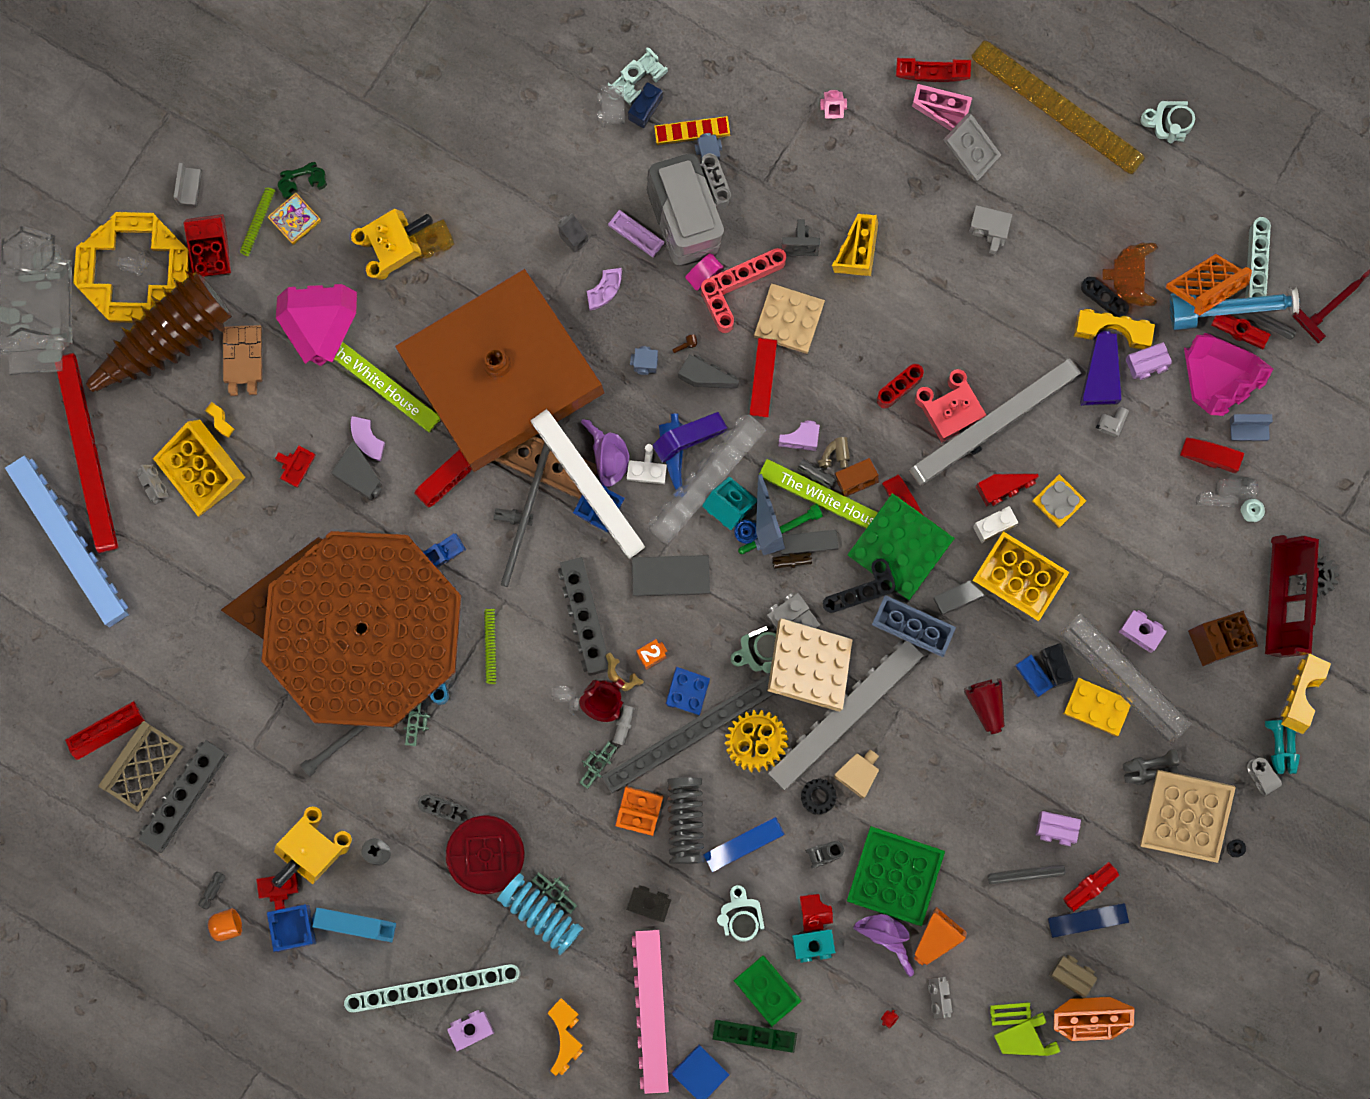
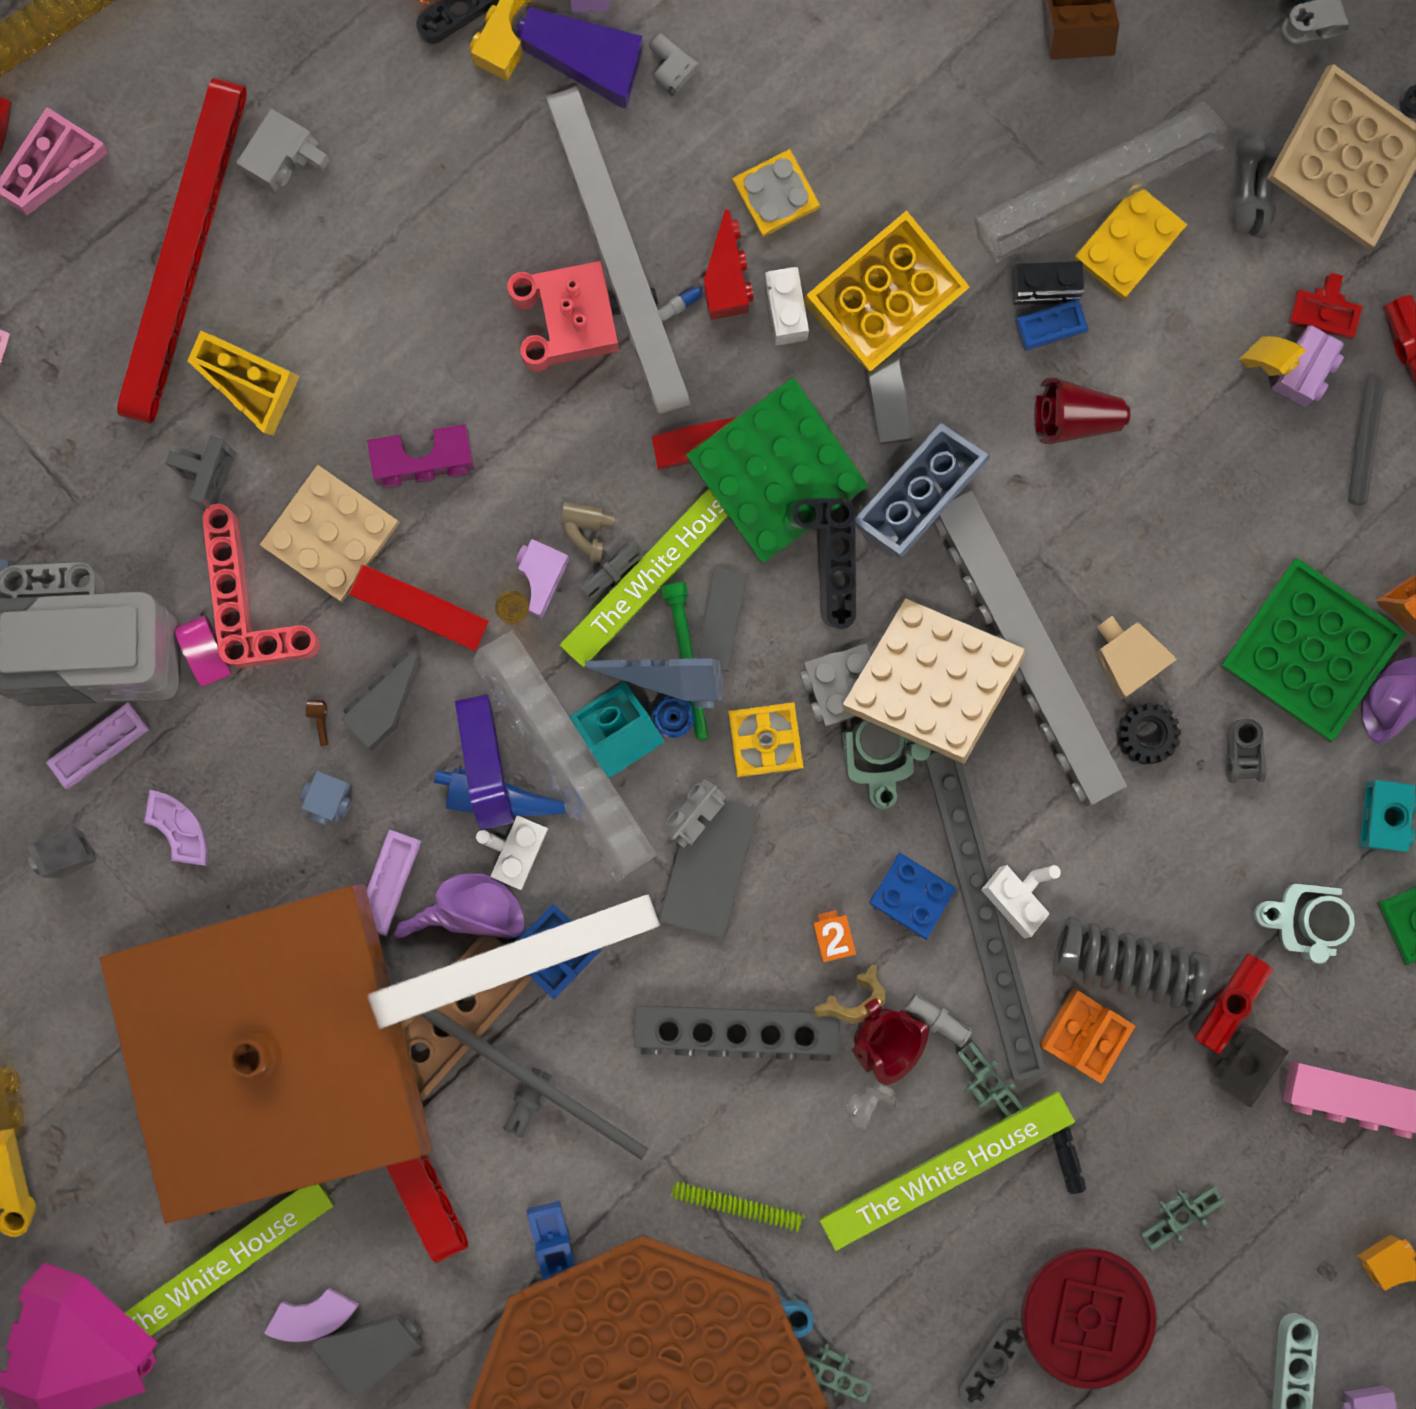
camera: 75 degrees left, 5 degrees up
(508, 899) = (1162, 1280): medium azure piece -> none
(543, 753) = (946, 1170): none -> lime tile
(567, 820) = (1069, 1161): none -> black axle
(611, 407) = (391, 877): none -> lavender plate
(694, 889) = (1246, 985): none -> red piece
(703, 559) = (702, 800): none -> light grey hinge
(703, 748) = (1016, 899): none -> white plate
(744, 844) = (1193, 879): blue slope -> none
(749, 585) = (765, 739): none -> yellow piece
(773, 742) = (1043, 779): yellow gear -> none
(778, 421) = (506, 601): none -> clear yellow cone
(792, 560) = (744, 656): dark brown pin -> none
(814, 913) = (1338, 799): red brick -> none
(852, 368) = (449, 456): none -> magenta arch
(857, 477) = (637, 505): dark orange hinge -> none
(904, 378) = (499, 372): red beam -> none
(919, 192) = (182, 251): none -> red beam
(972, 147) = (132, 136): light grey plate -> none
(977, 466) = (679, 303): none -> piece
(1056, 804) = (1273, 355): none -> yellow slope
(1094, 829) = (1326, 309): none -> red hinge
(1131, 630) = (1021, 146): lavender brick -> none

